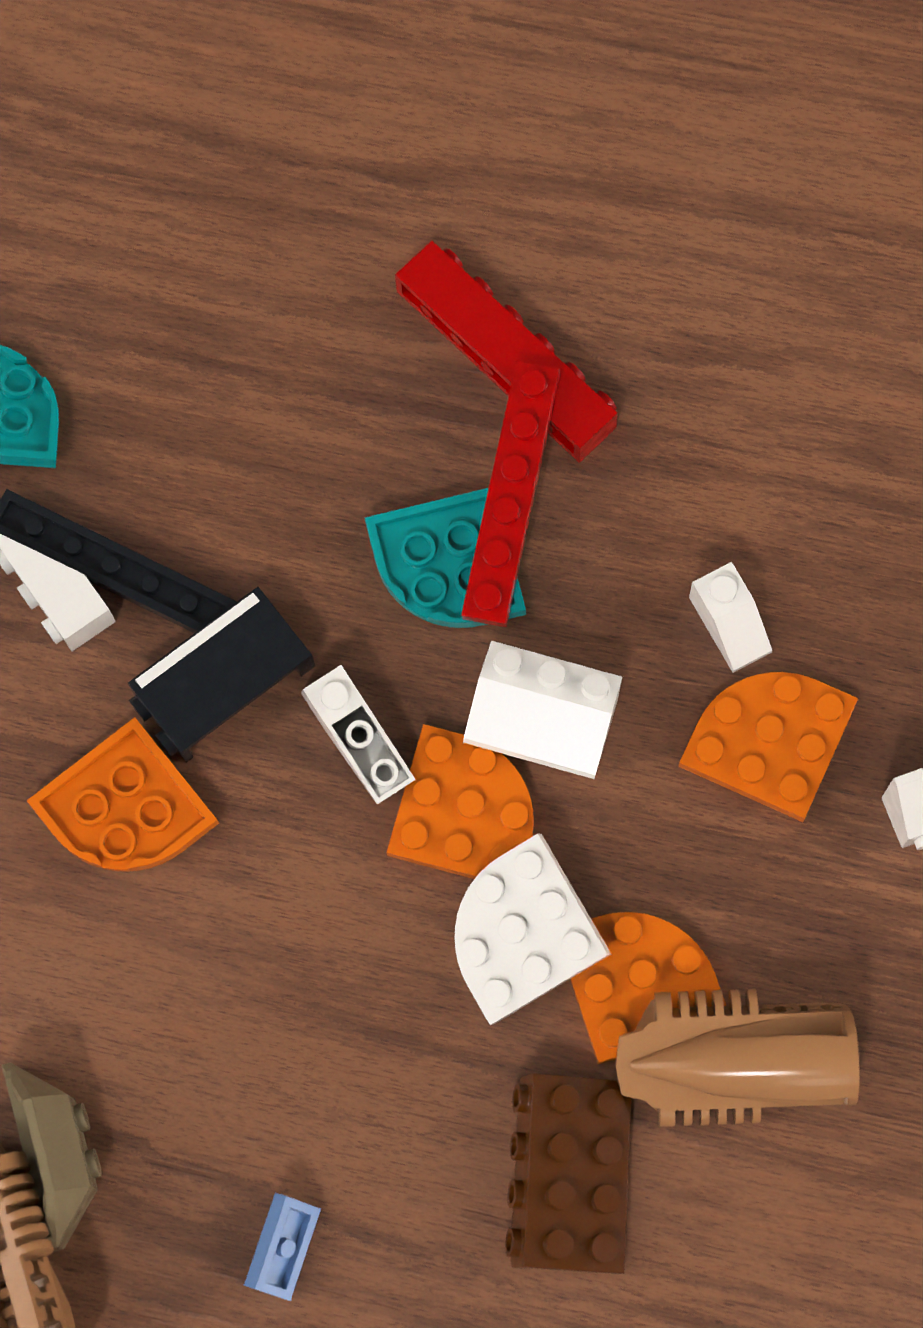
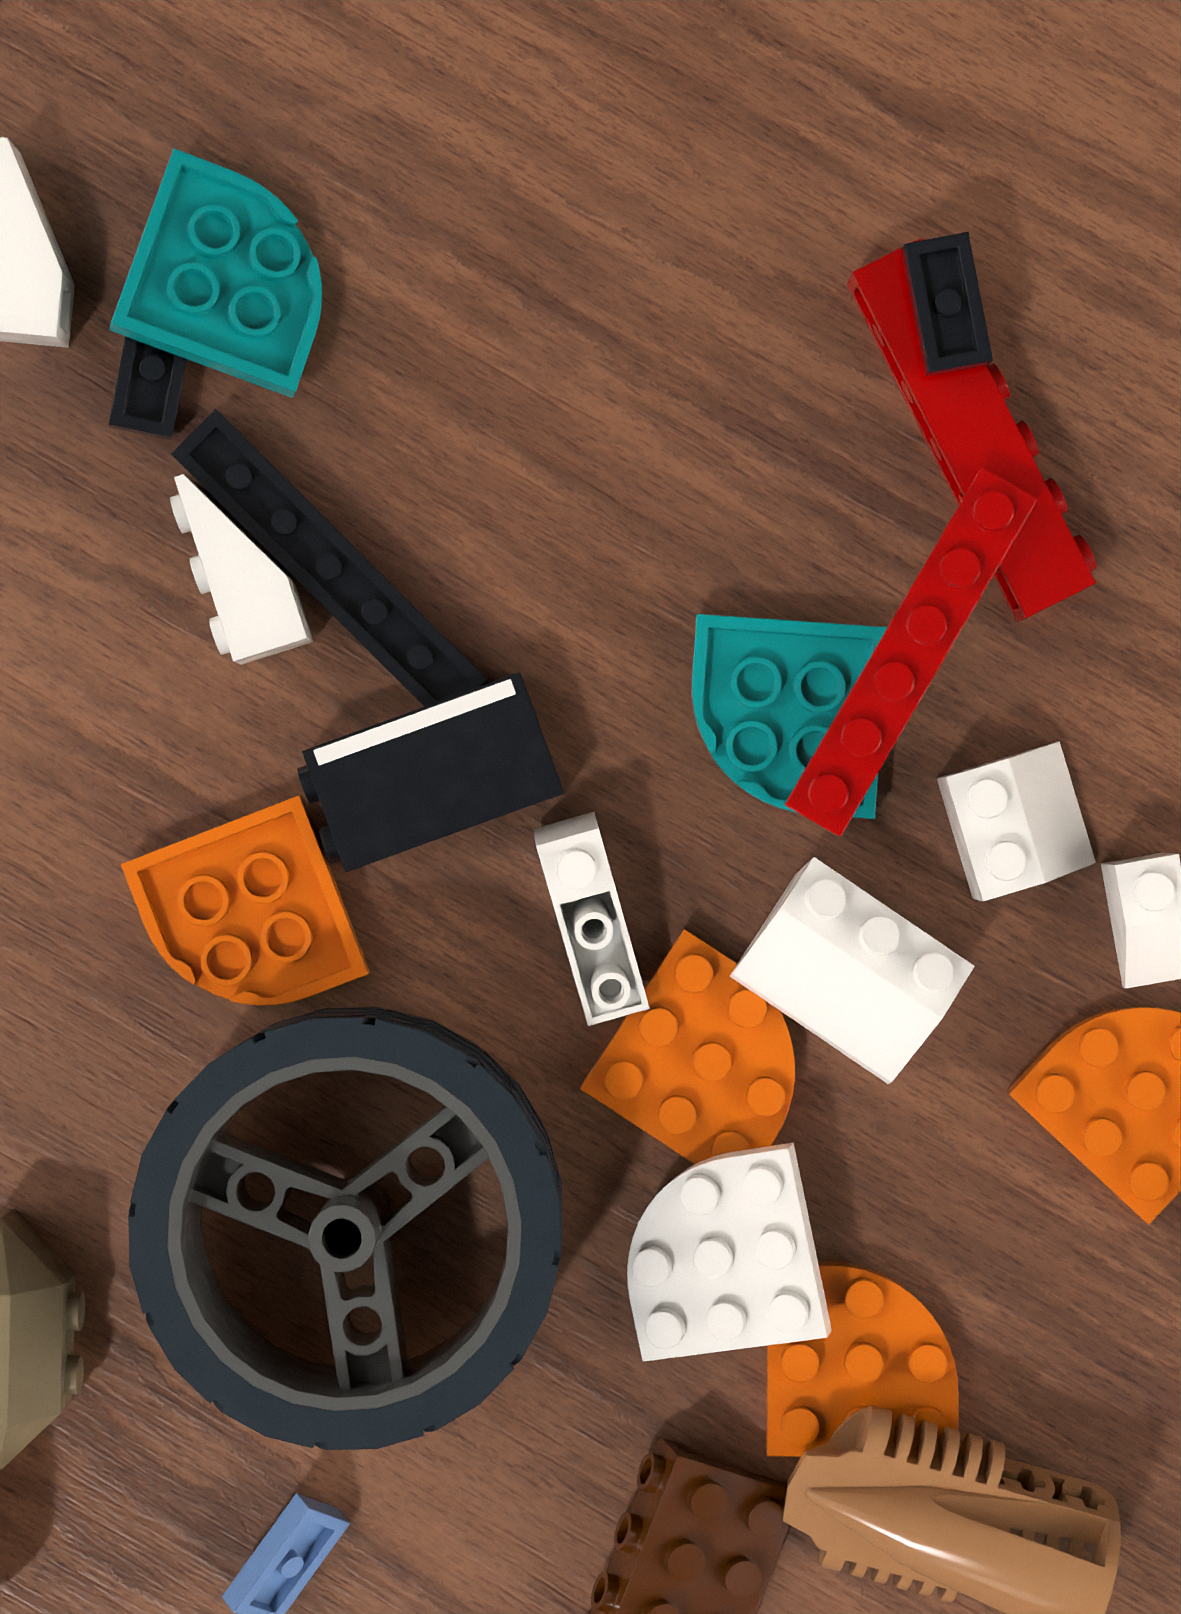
camera: 10 degrees right, 15 degrees up
(135, 970) = (373, 1389): none -> wheel
(460, 271) = (946, 304): none -> black plate
(619, 583) = (1016, 822): none -> white slope

